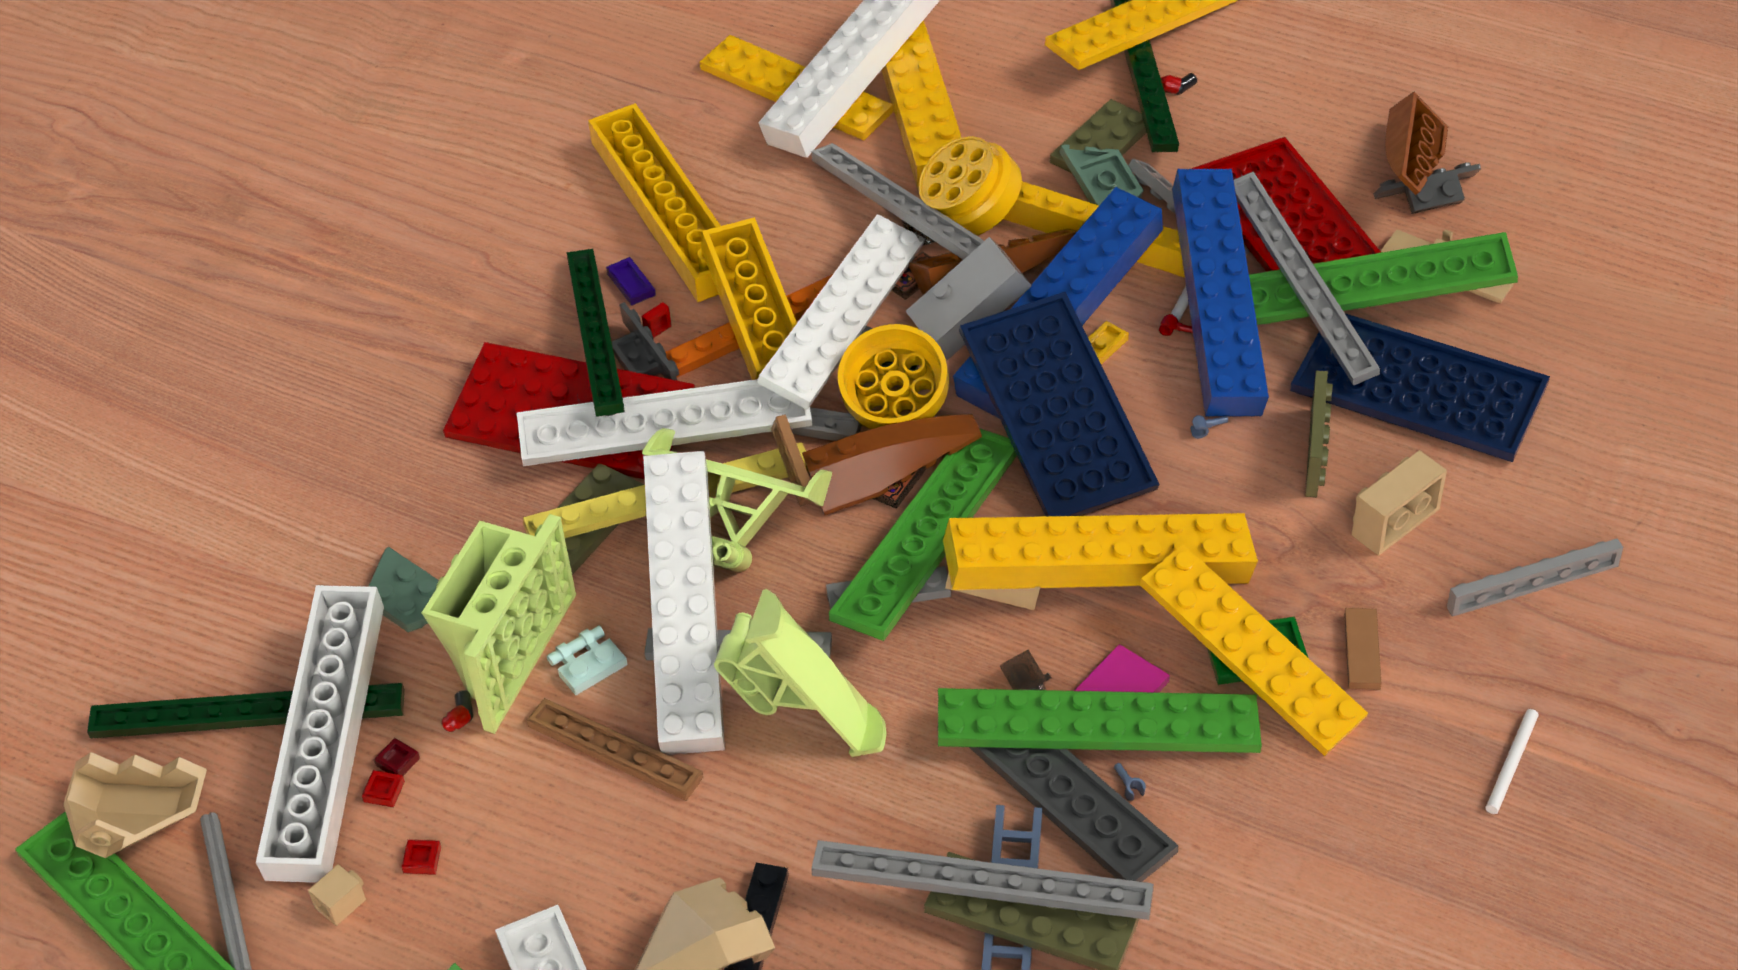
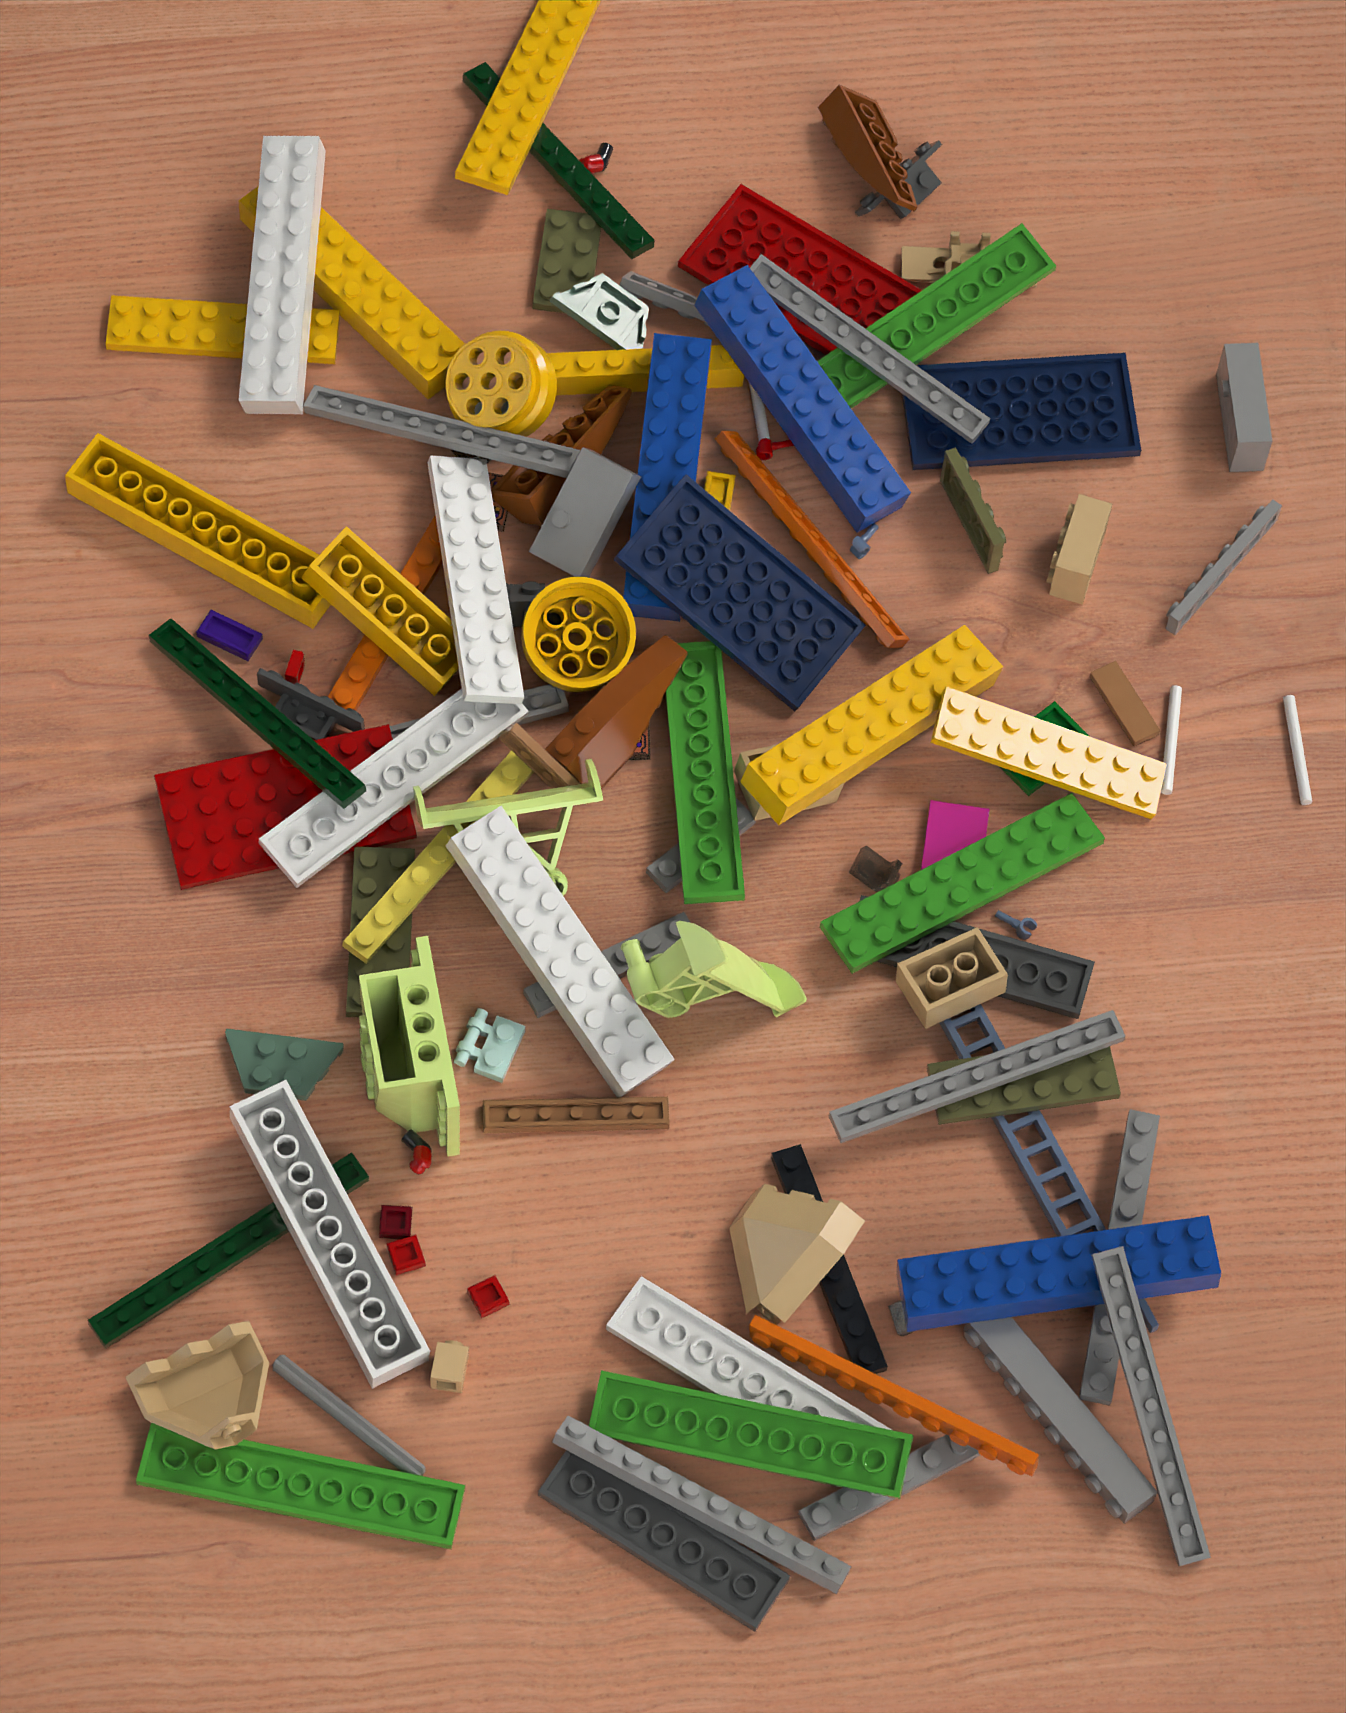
camera: 40 degrees left, 15 degrees up
(1020, 786) = (951, 978): none -> tan brick
(1159, 406) = (817, 546): none -> orange plate
(1388, 698) = (1171, 738): none -> white bar
(1635, 456) = (1244, 407): none -> light grey brick

